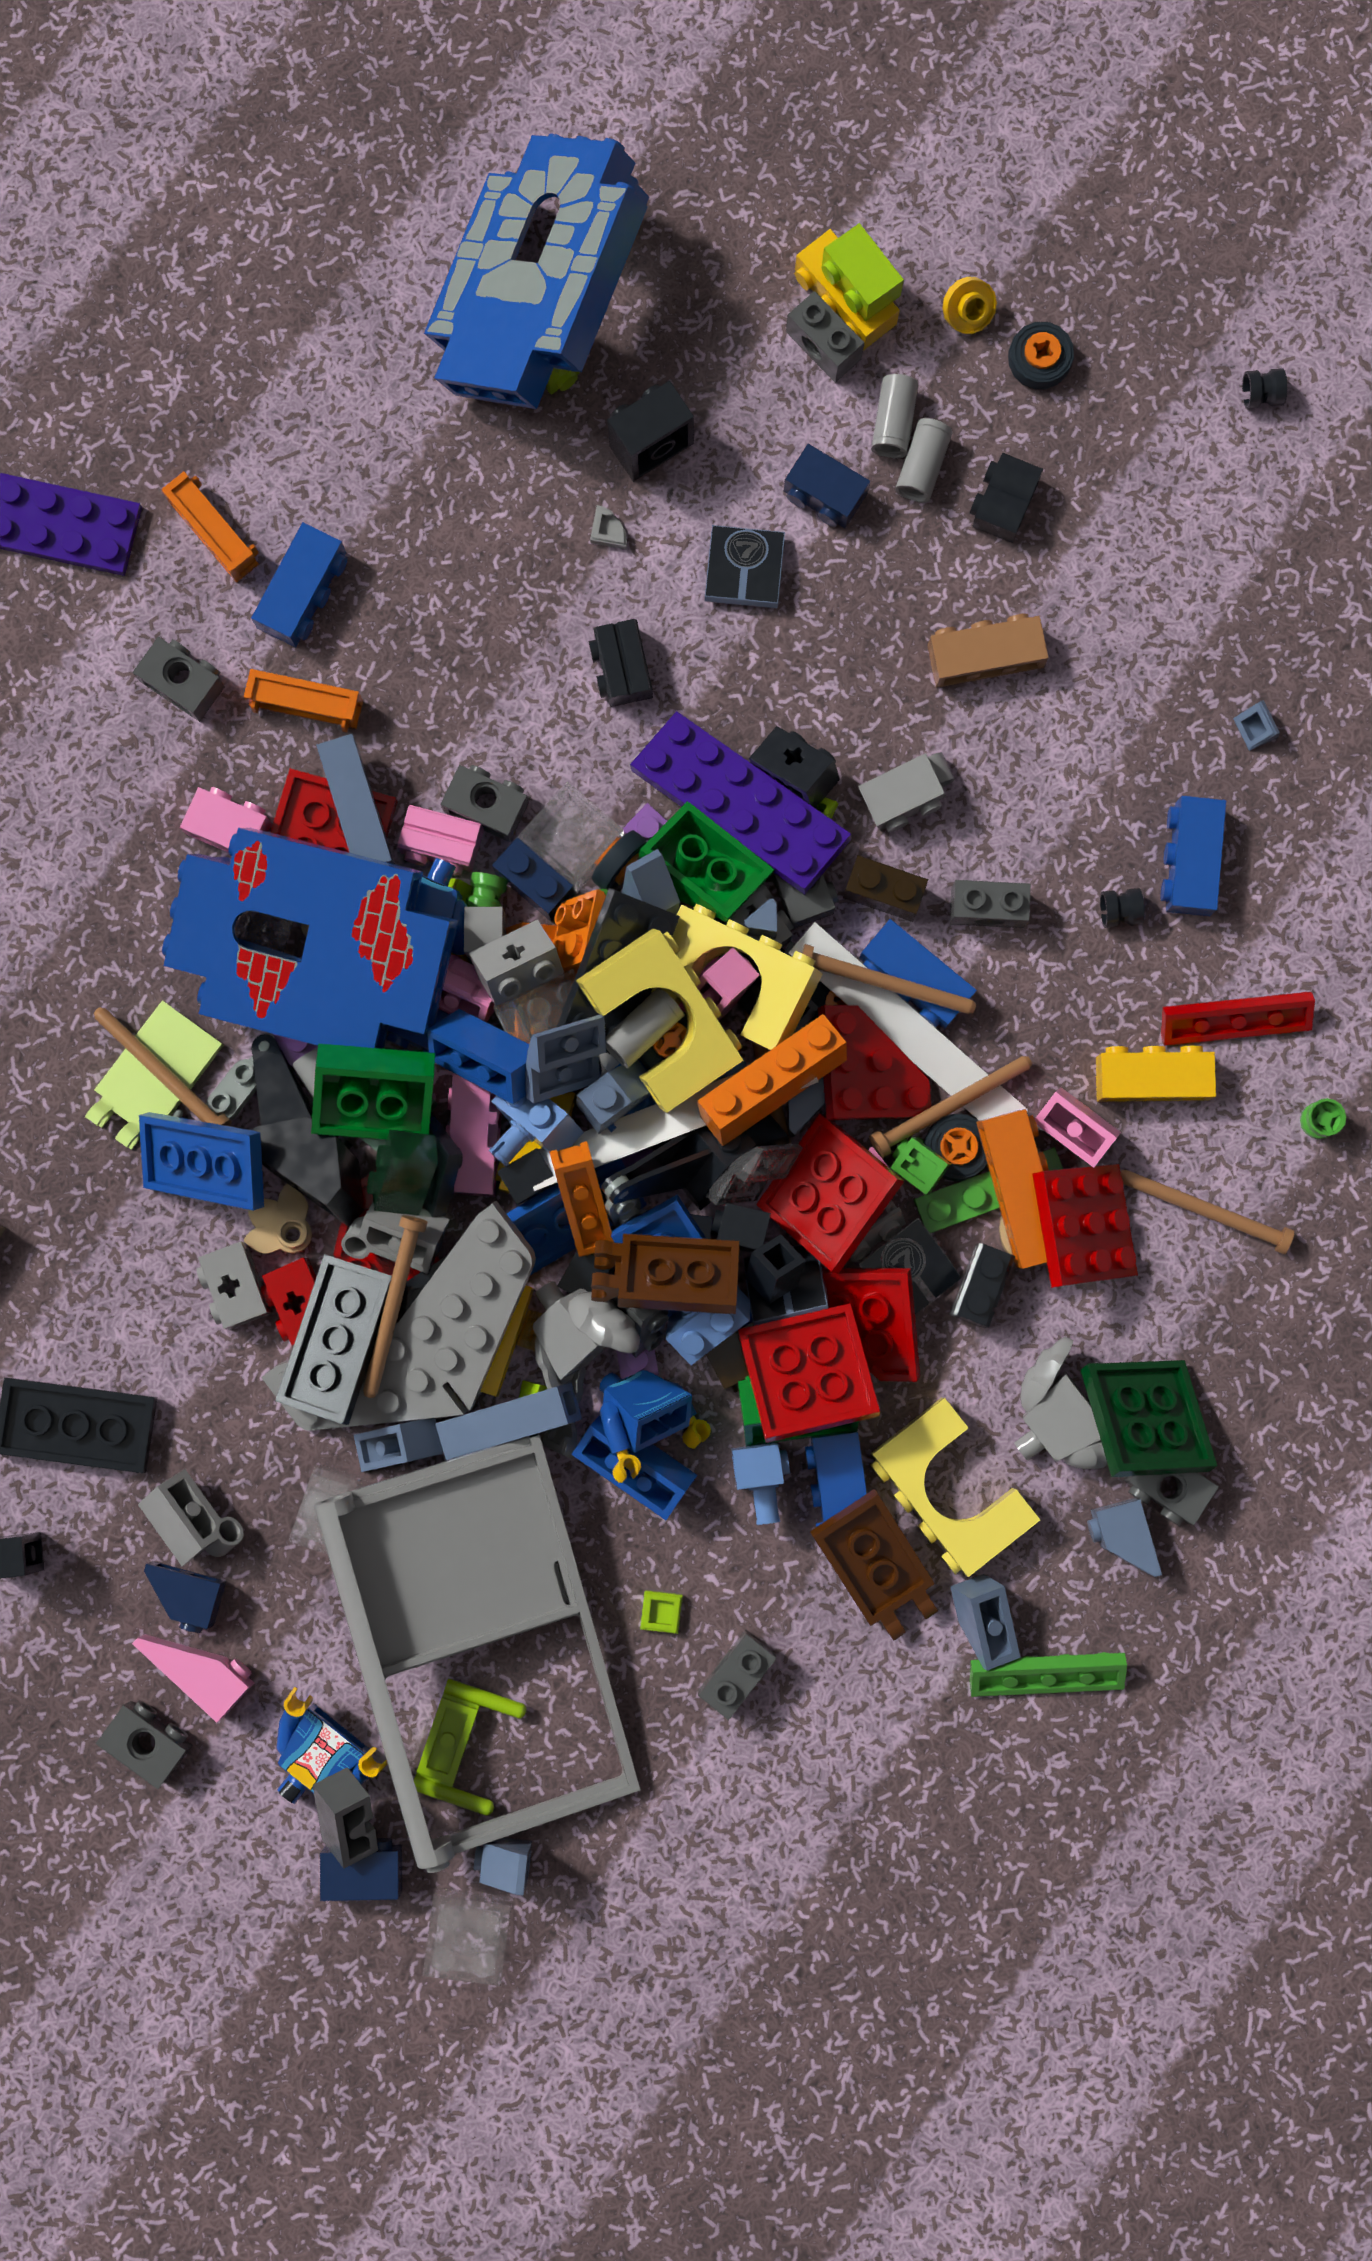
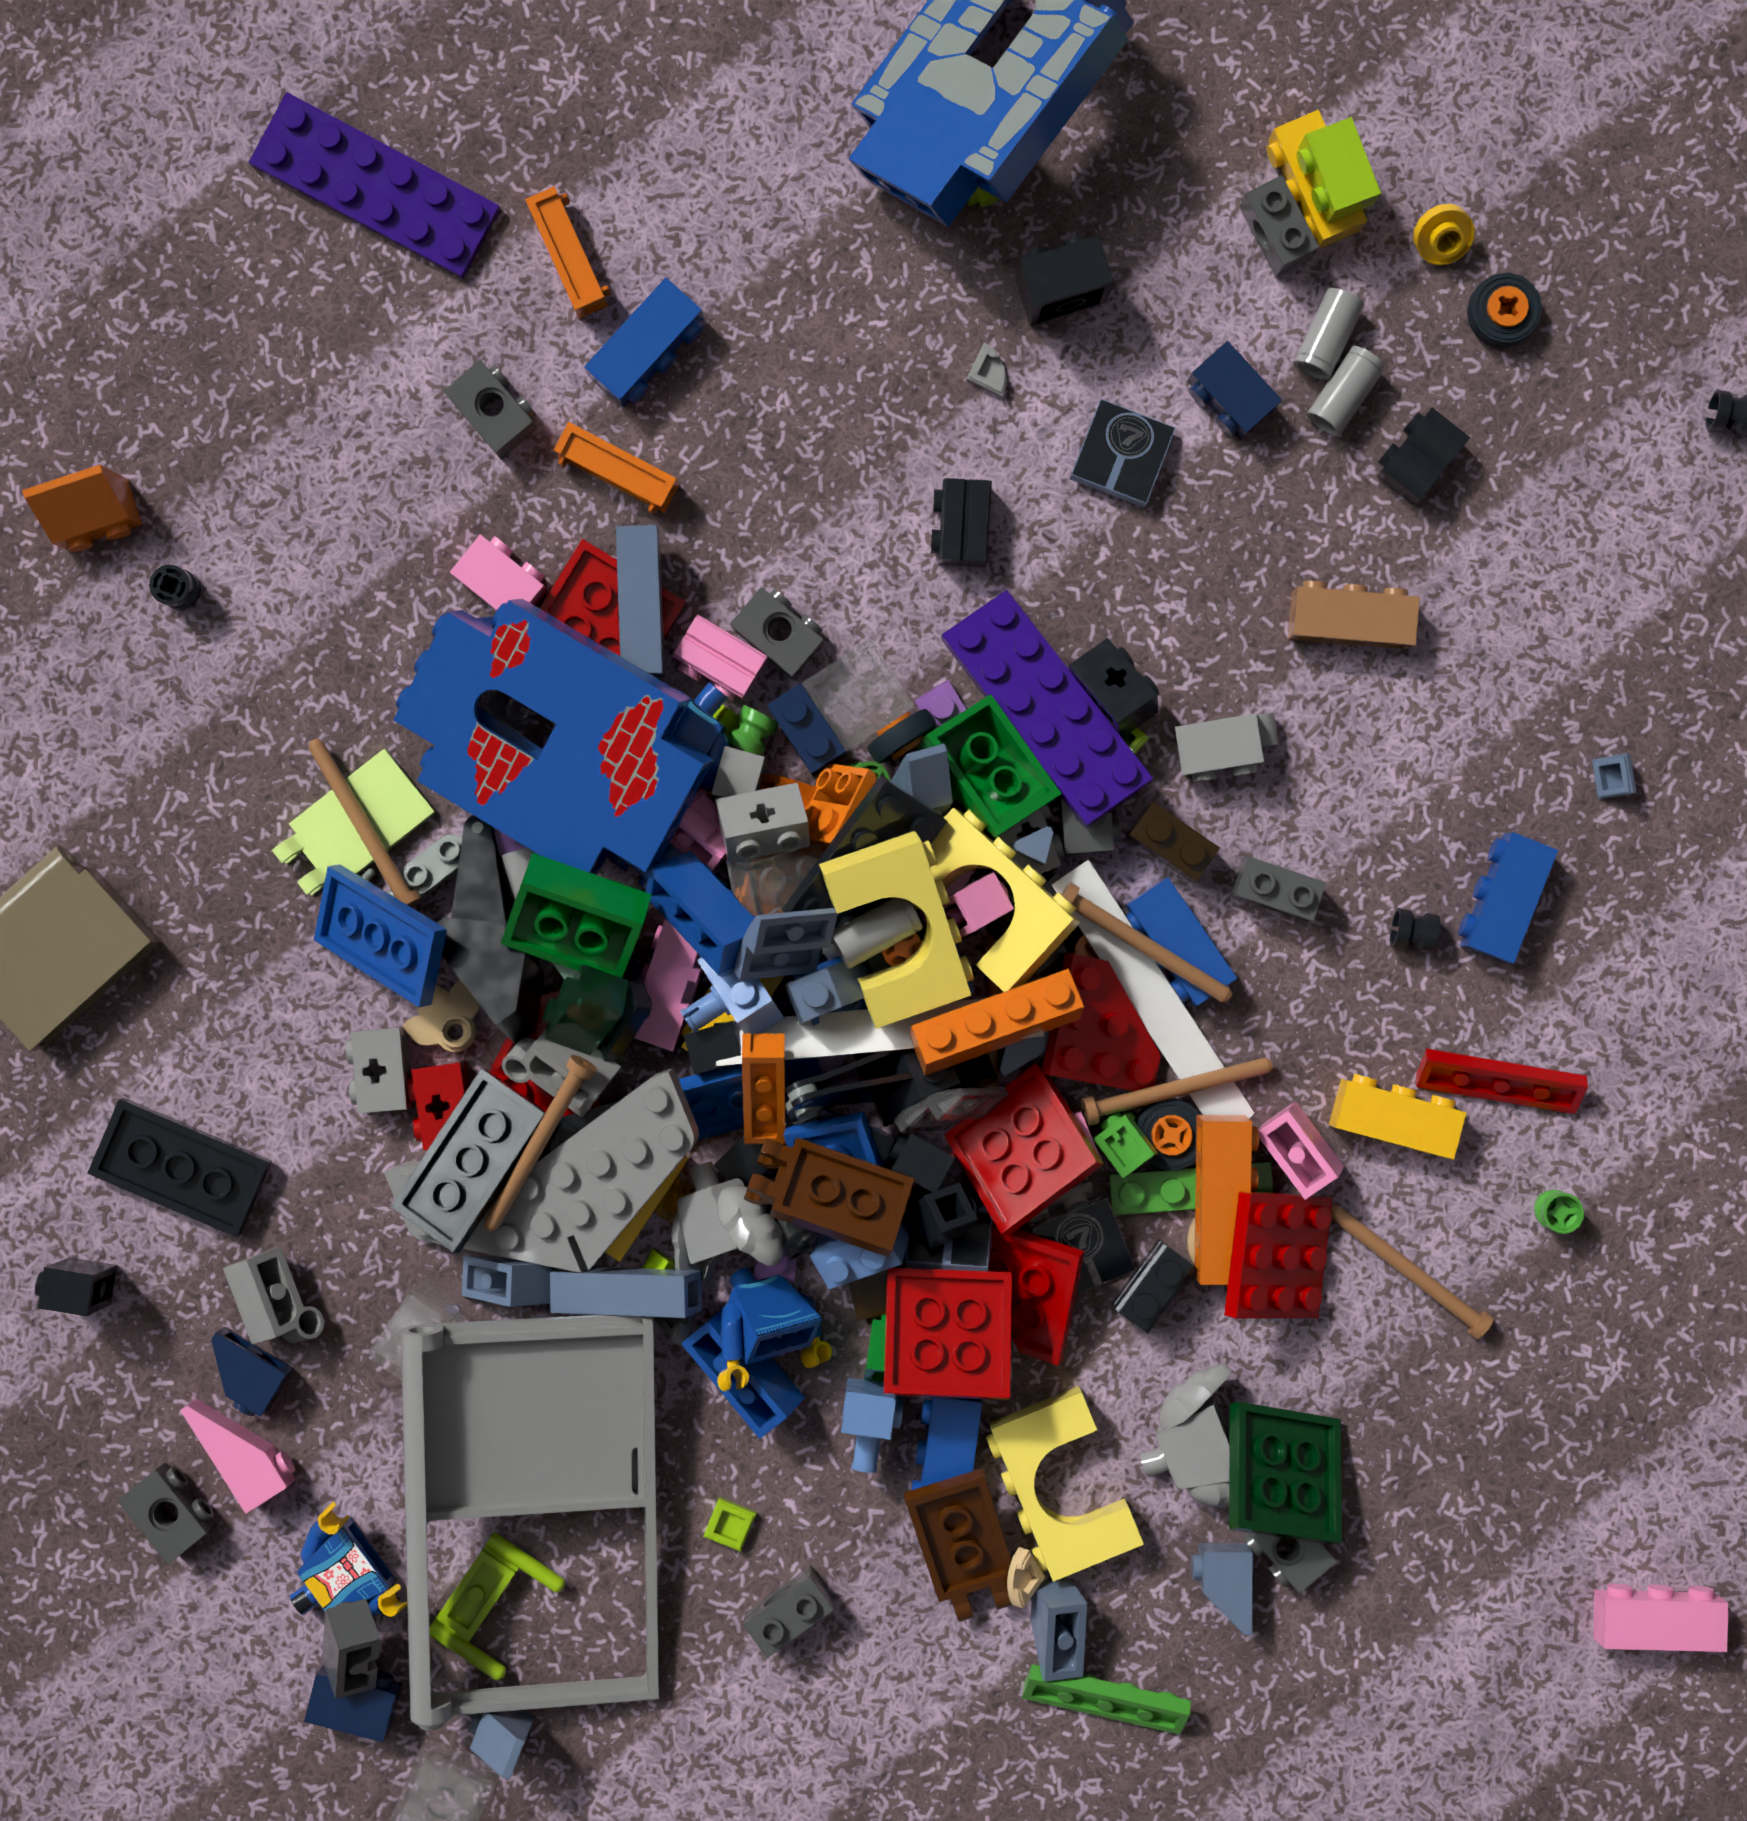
camera: 10 degrees right, 5 degrees up
(940, 1581) = (1023, 1577): none -> tan tile

